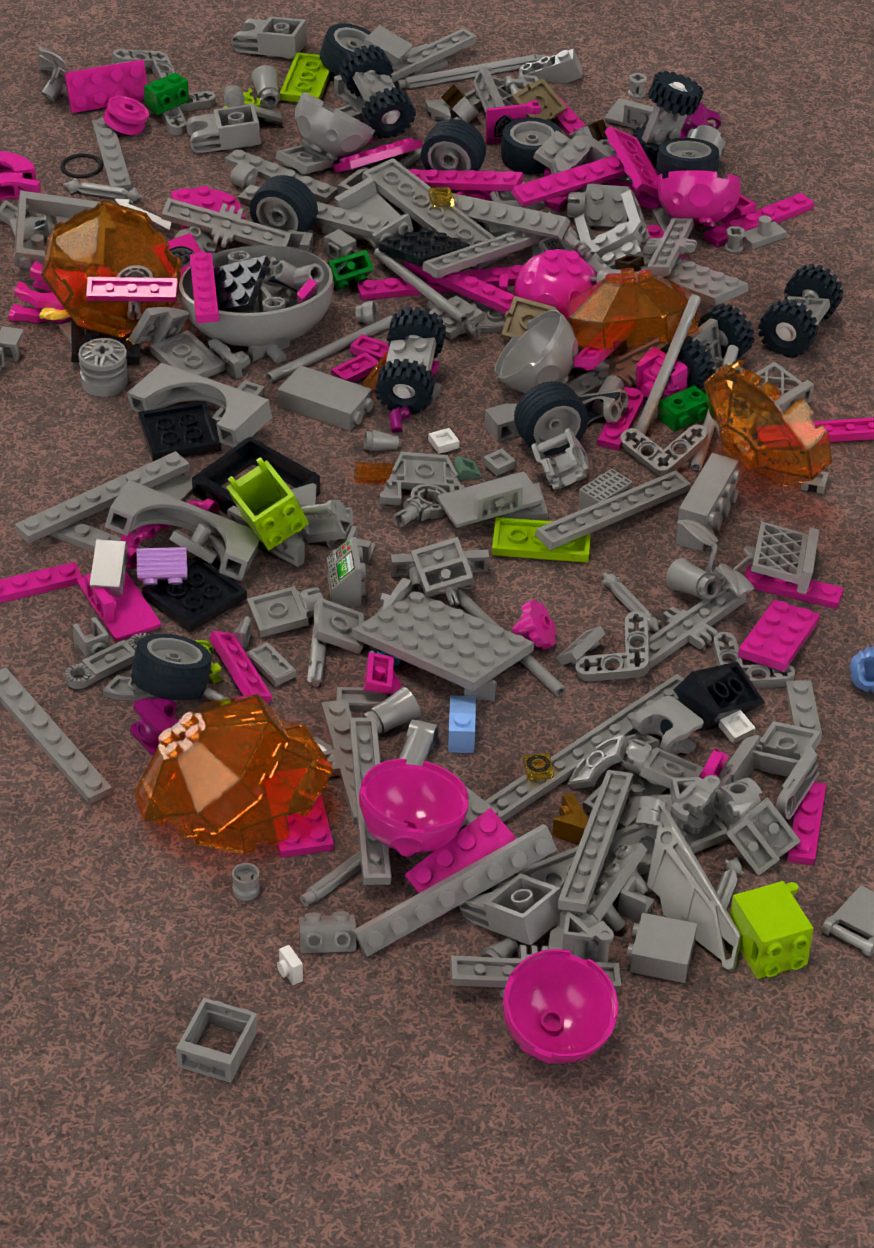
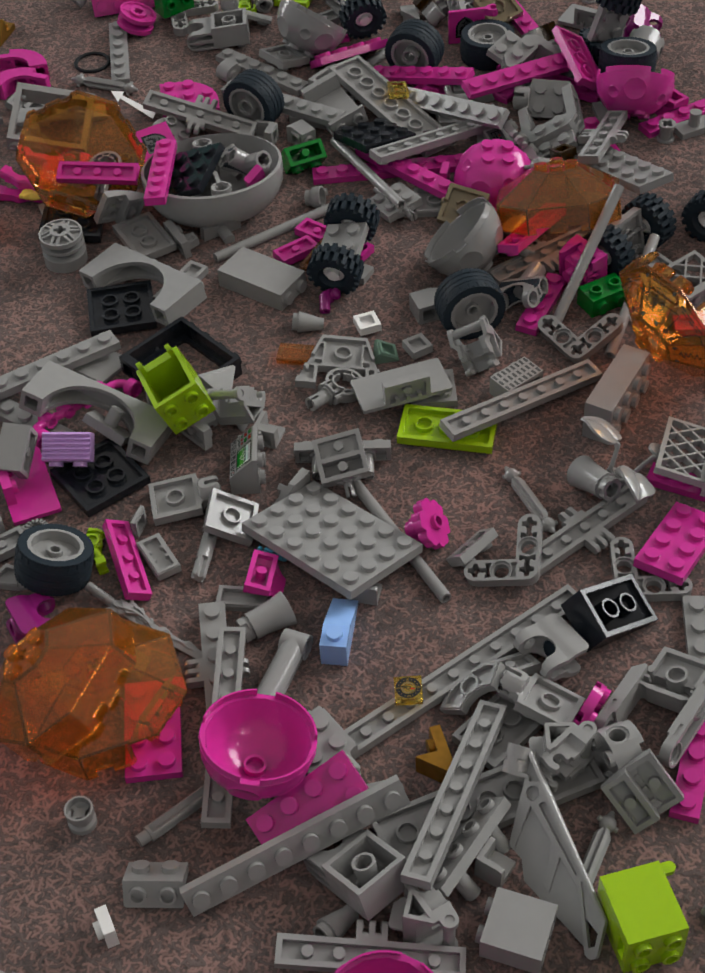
camera: 10 degrees right, 5 degrees up
(736, 727) = (625, 648): white plate -> none

